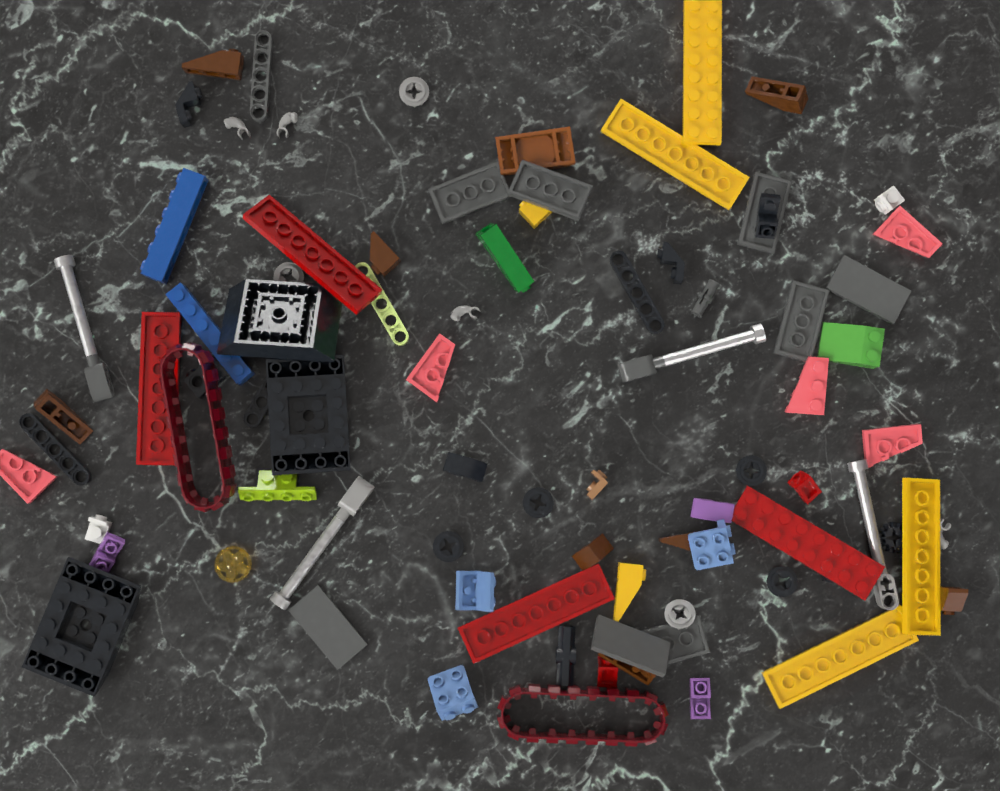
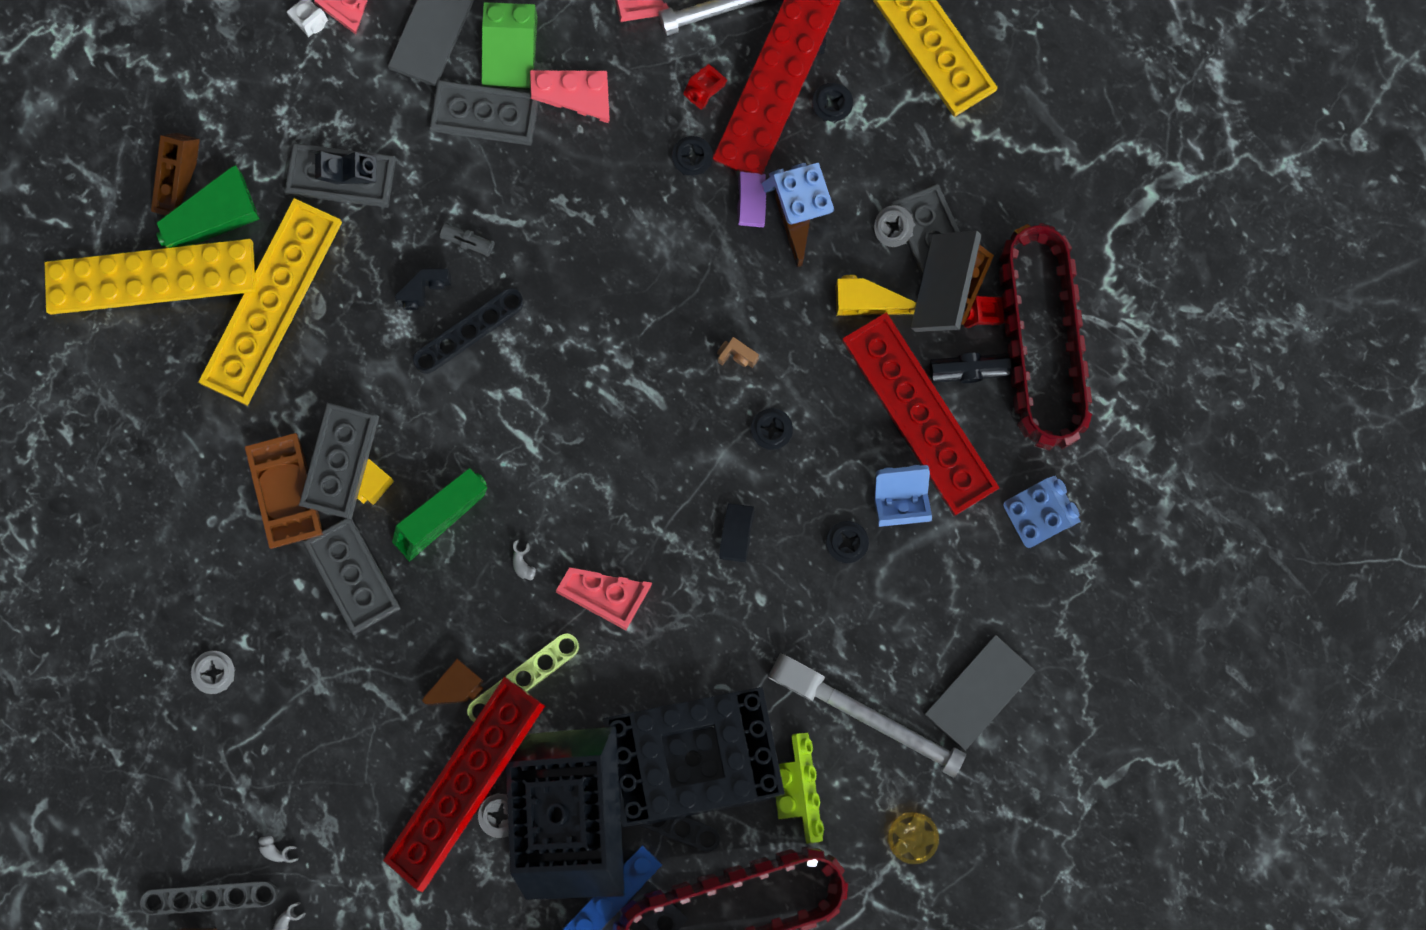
camera: 100 degrees left, 5 degrees down
(593, 552) = (829, 349): reddish brown slope -> none
(648, 365) = (568, 304): flat silver piece -> none
(700, 698) = (999, 191): medium lavender slope -> none
(745, 117) = (210, 212): none -> green slope

